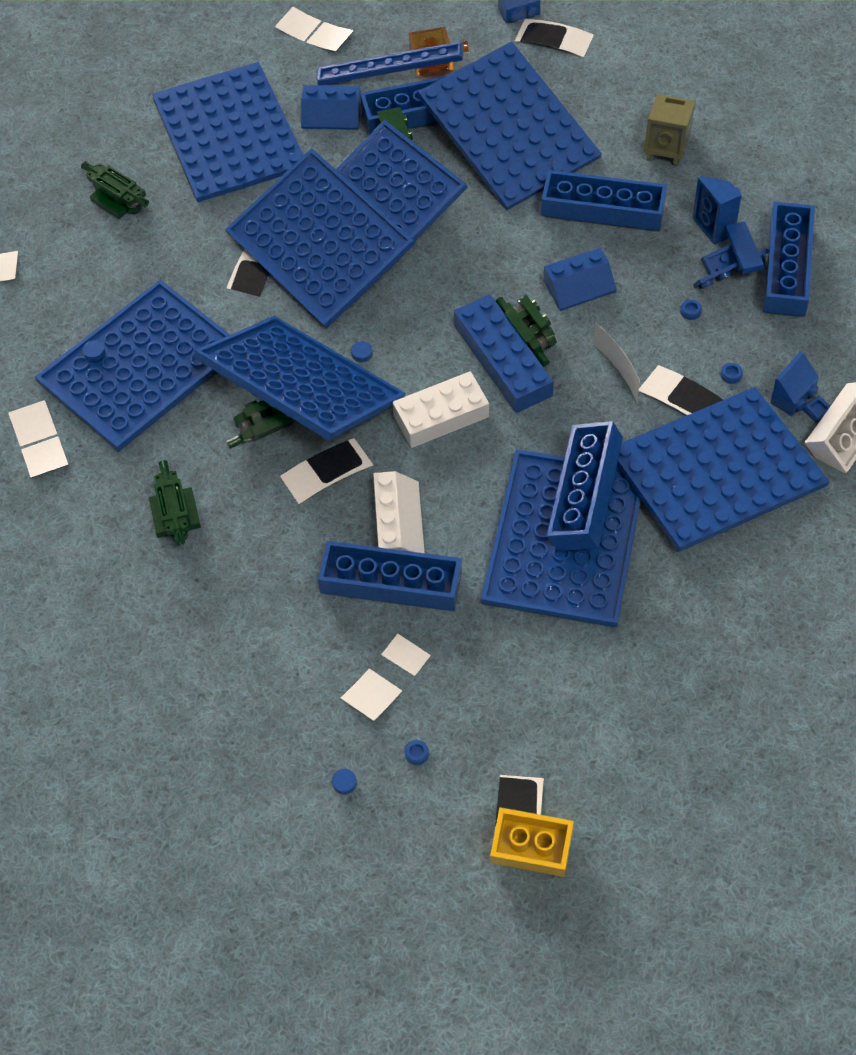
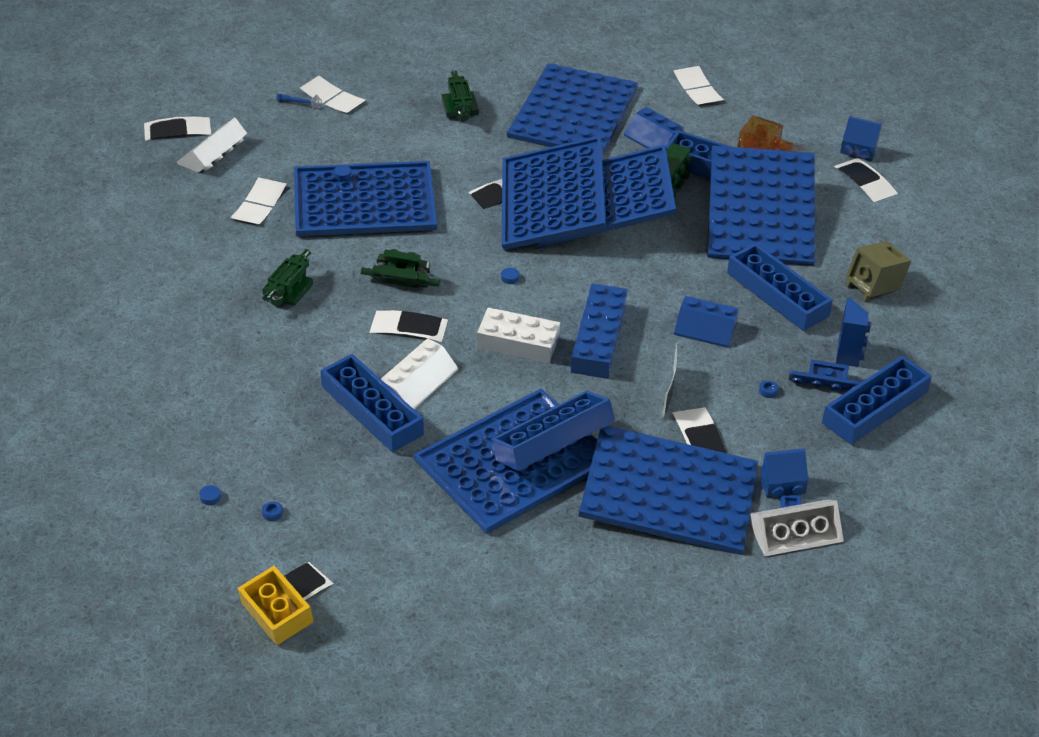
camera: 35 degrees right, 15 degrees down
(300, 377) = (443, 255): blue plate -> none
(374, 693) = (292, 462): white sticker -> none
(390, 63) = (721, 126): blue tile -> none
(530, 325) = (634, 319): dark green piece -> none
(731, 373) = (752, 443): blue tile -> none
(744, 247) = (846, 370): blue tile -> none

